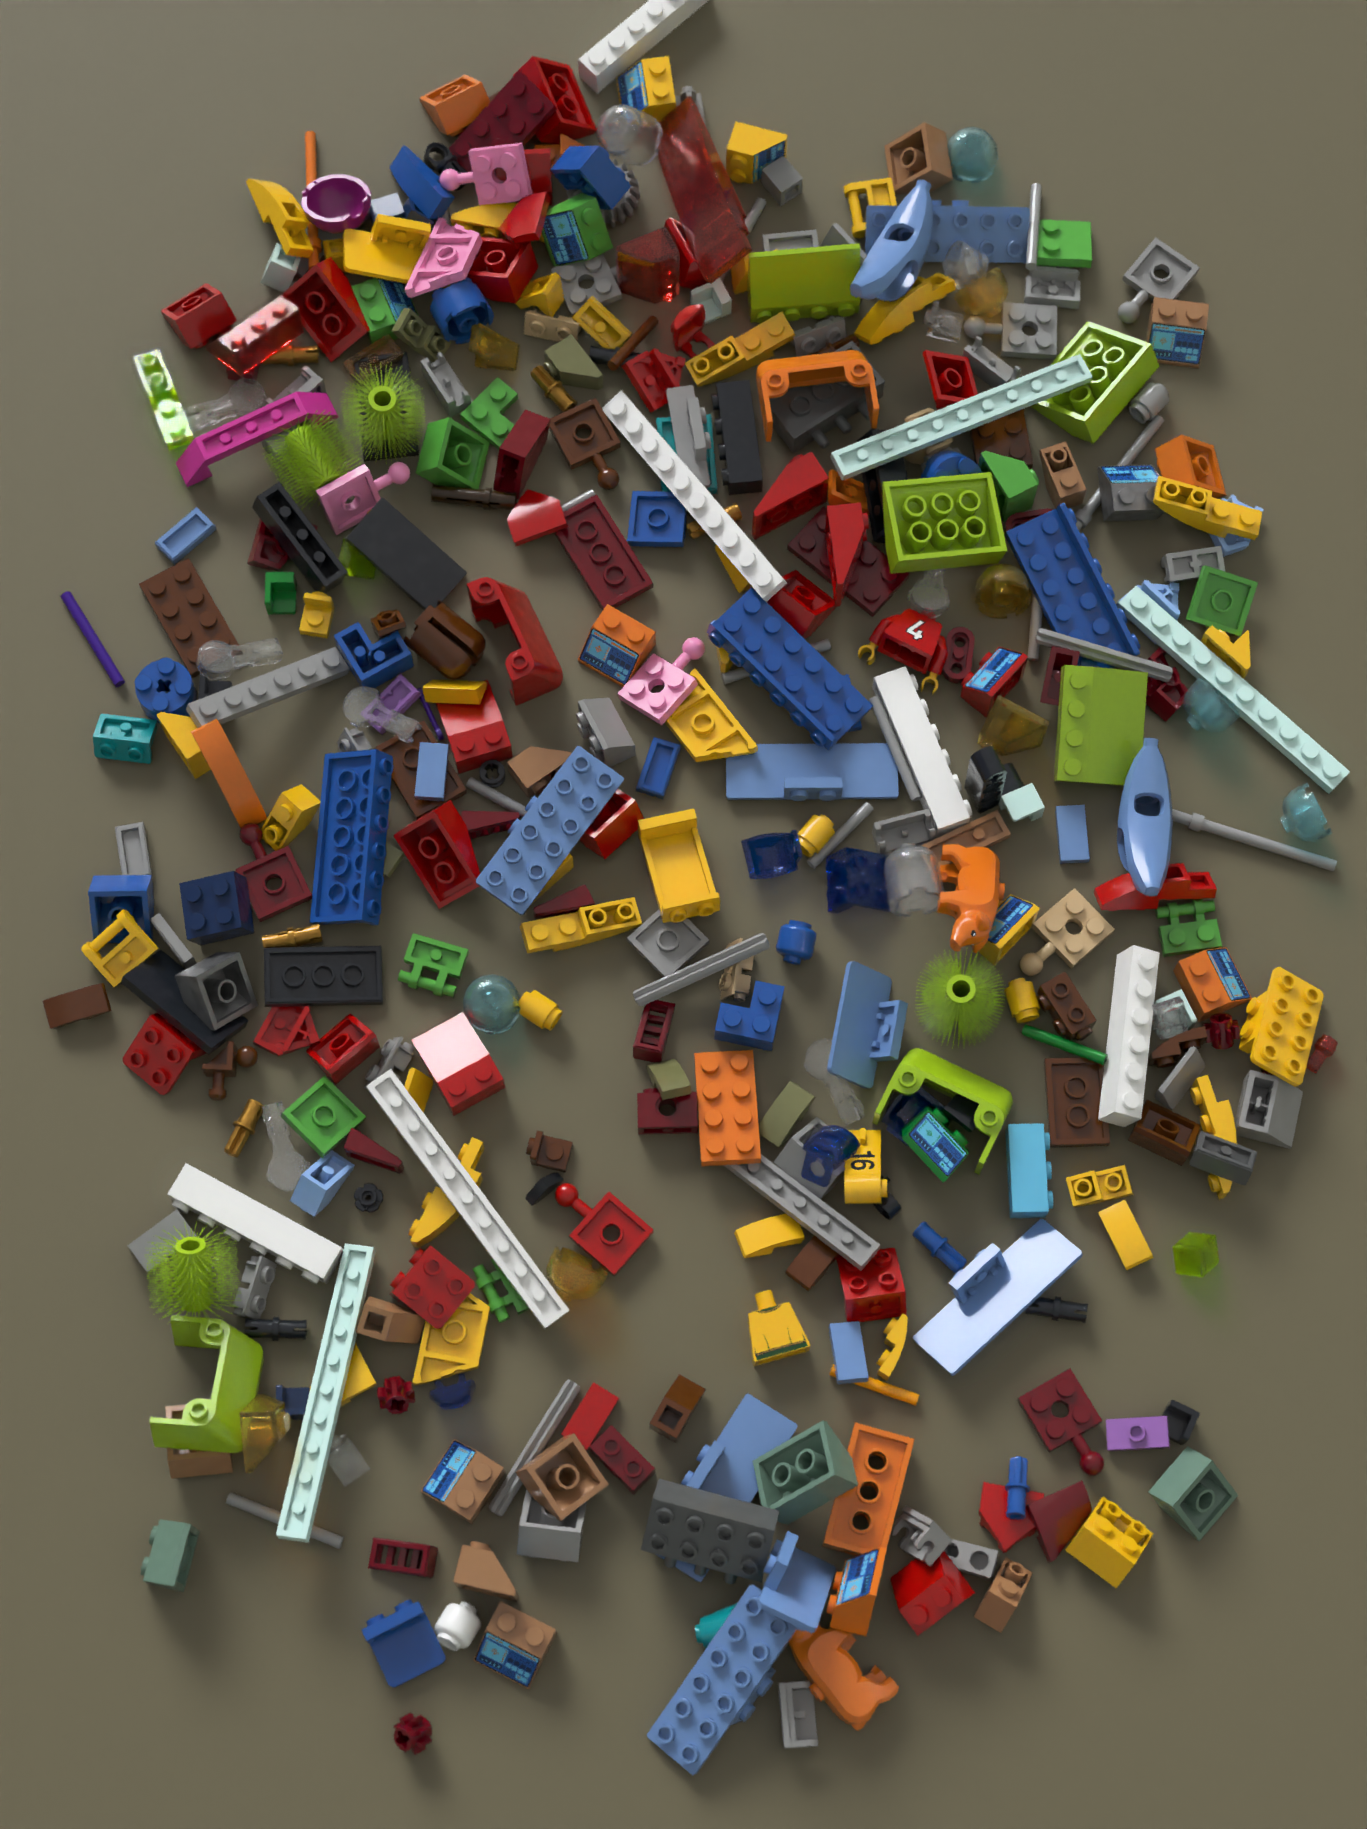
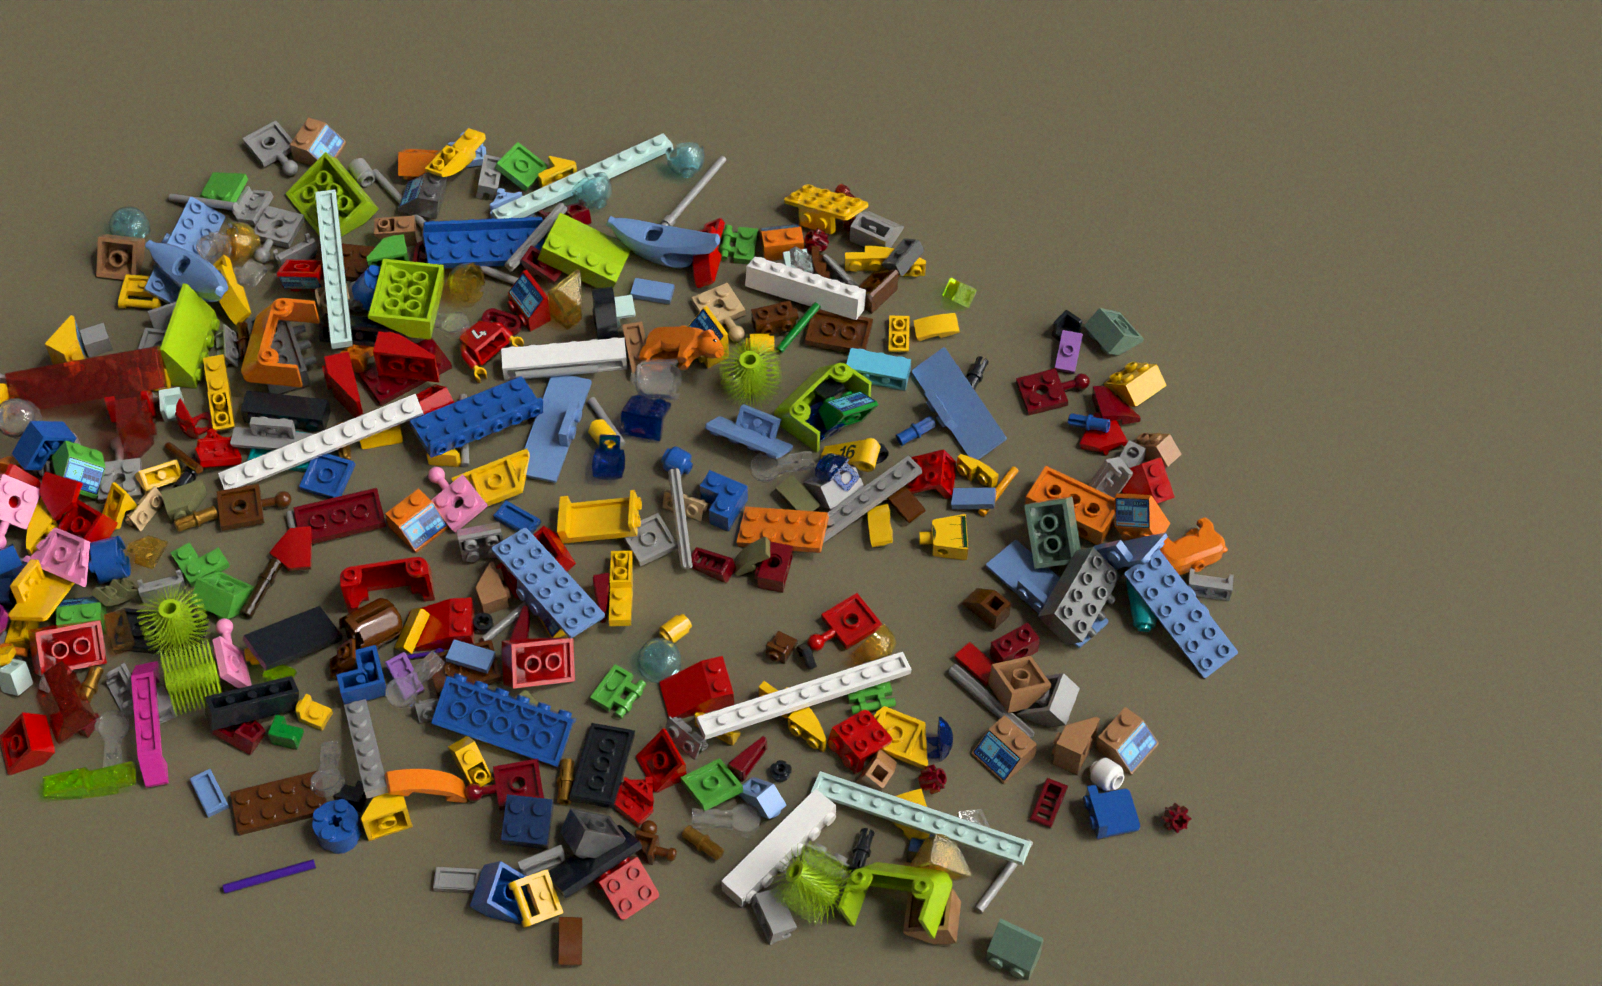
camera: 75 degrees left, 15 degrees down
(124, 738) = (363, 865): teal bracket -> none
(520, 452) = (240, 547): dark red slope -> none
(903, 829) = (619, 382): light grey hinge -> none

